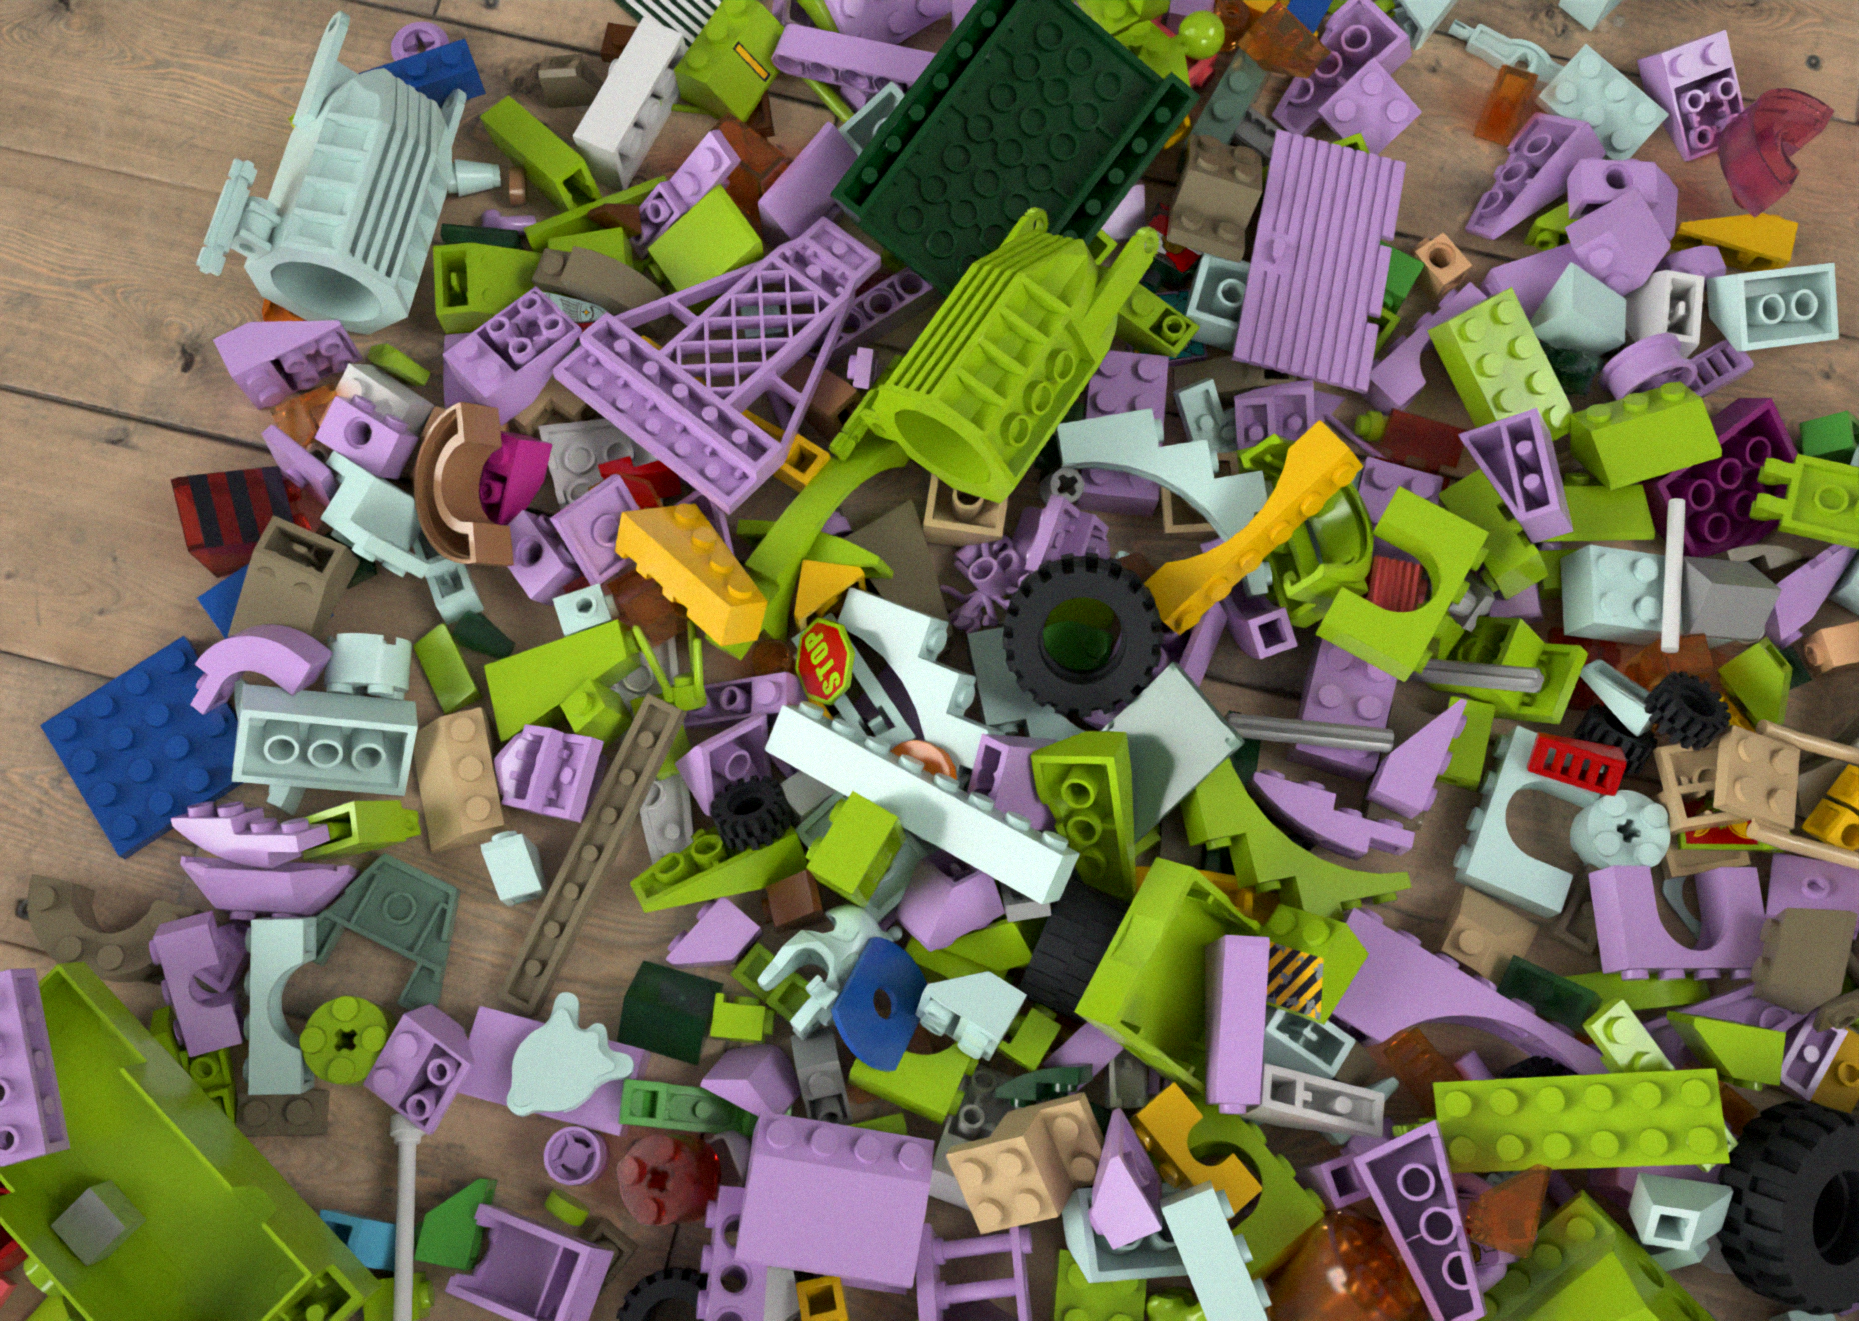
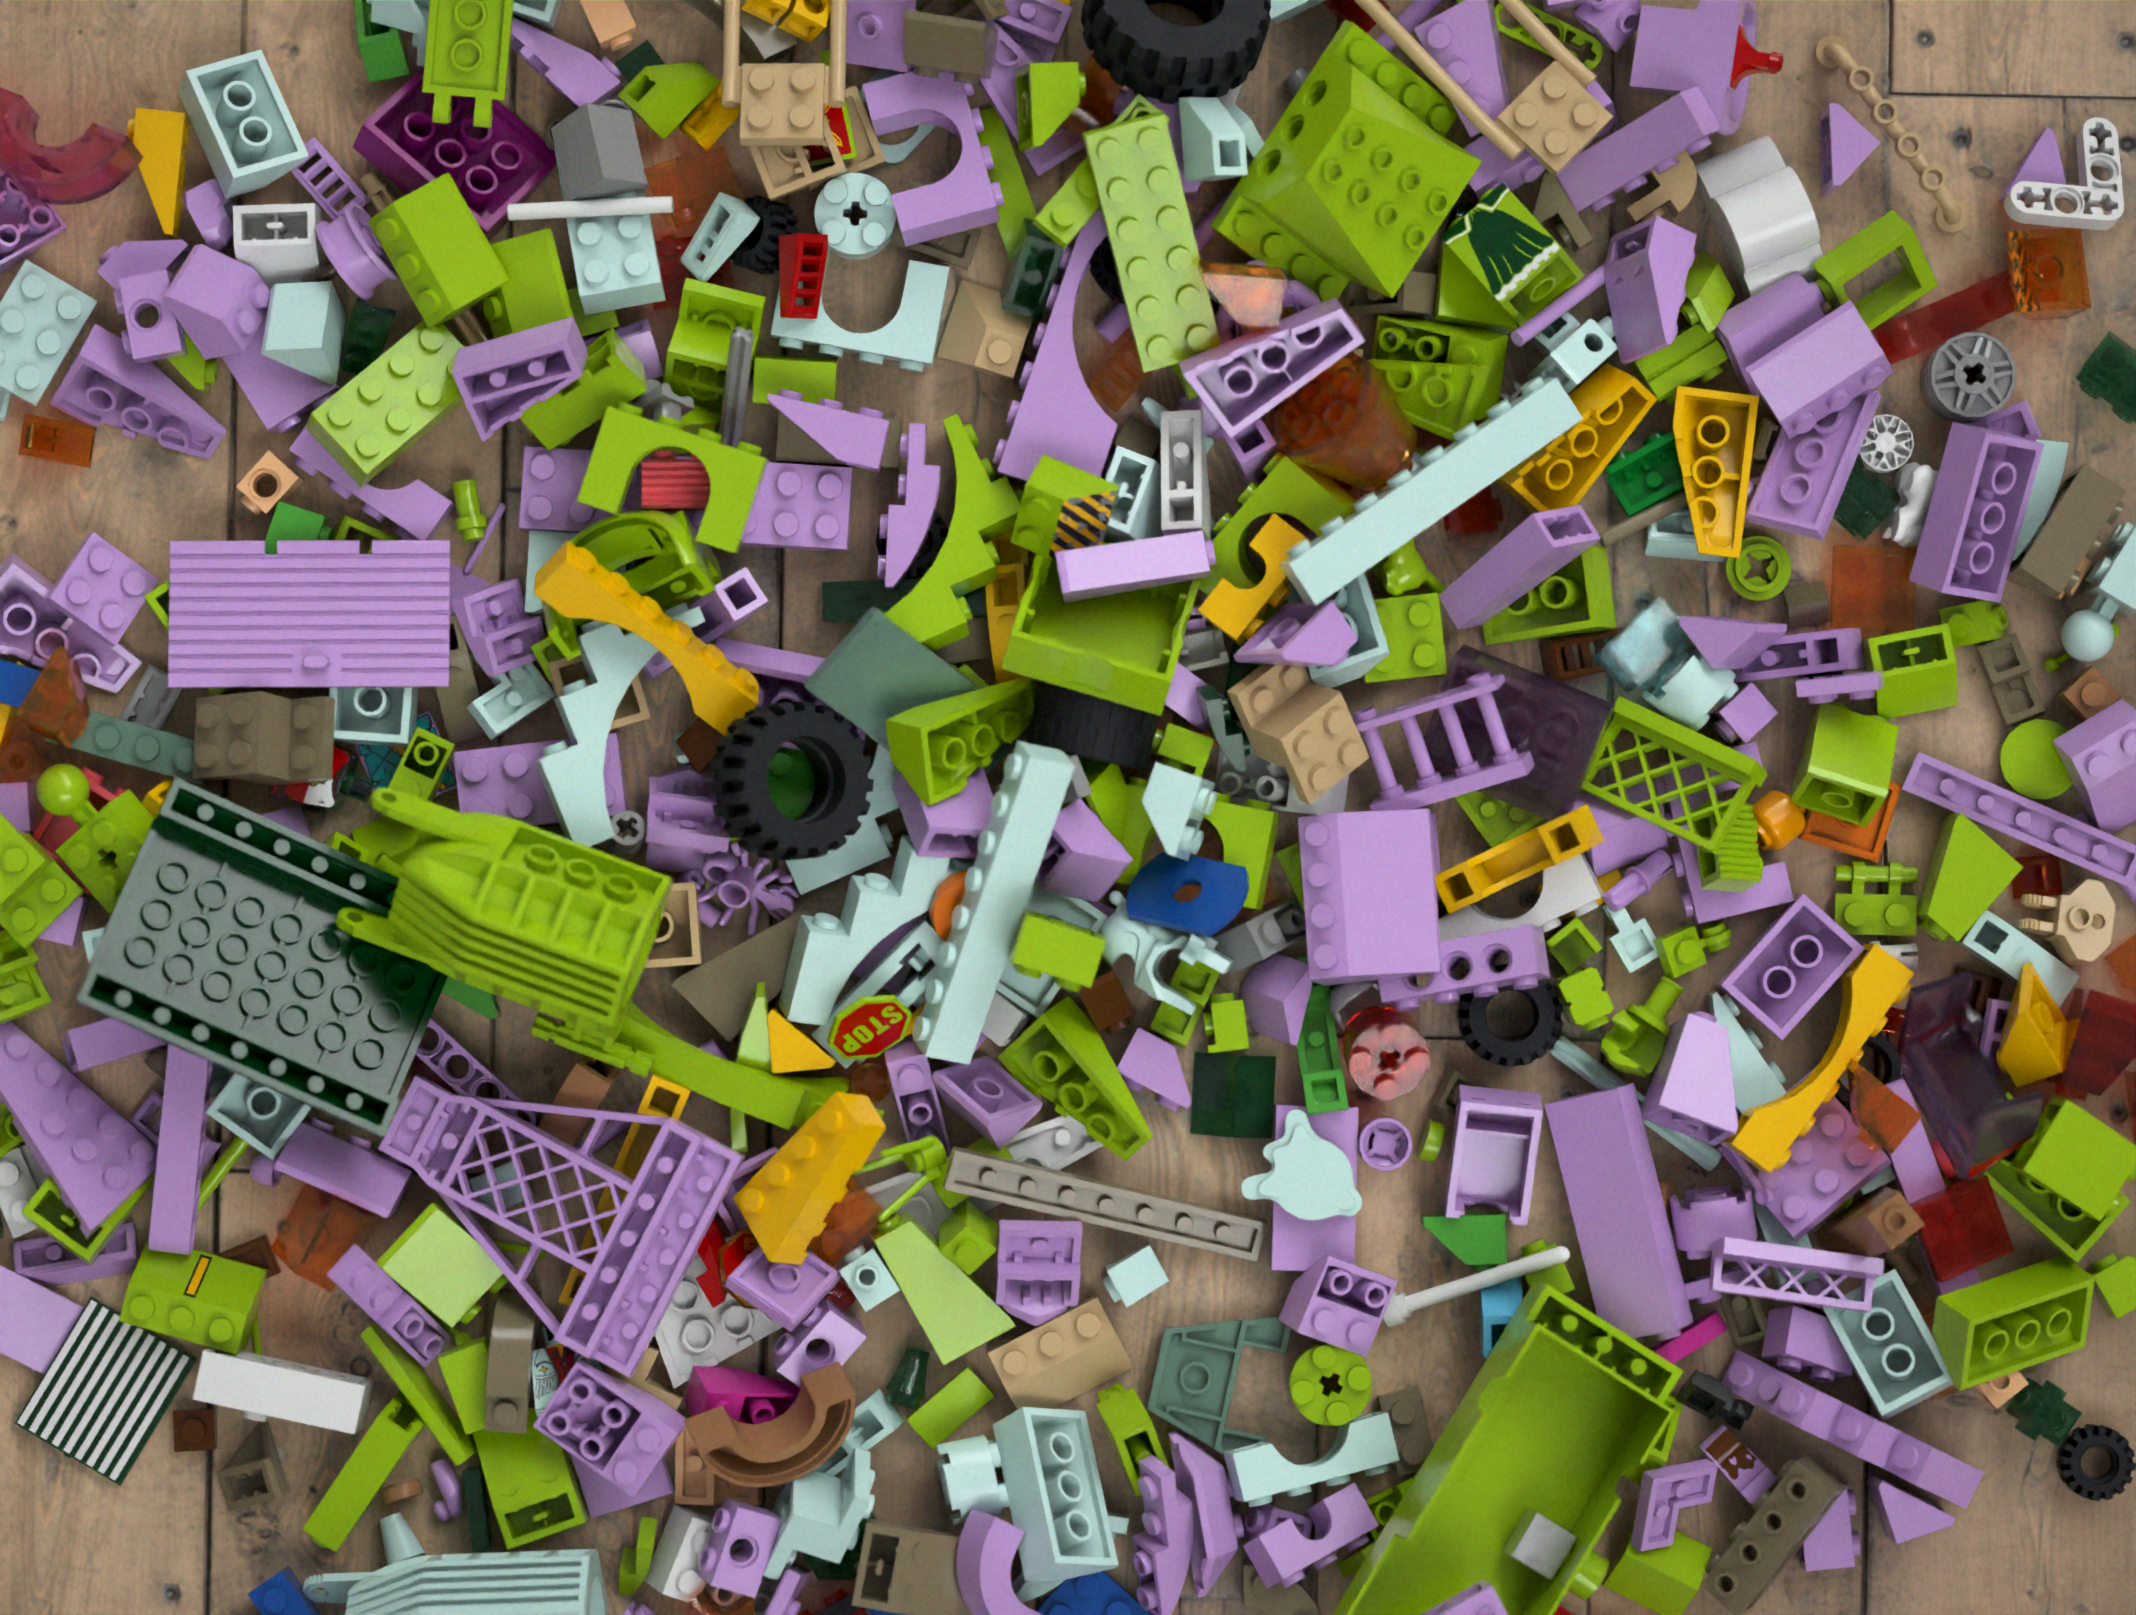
camera: 105 degrees left, 15 degrees up
(617, 215) = (425, 1366): reddish brown slope -> none
(735, 818) = (1017, 1071): black tyre -> none
(864, 368) = (544, 1064): lavender plate -> none
(1312, 732) = (832, 539): light grey axle -> none
(1422, 438) = (481, 473): clear red plate -> none
(1687, 710) = (715, 170): black tyre -> none
(1760, 556) = (534, 110): dark tan slope -> none

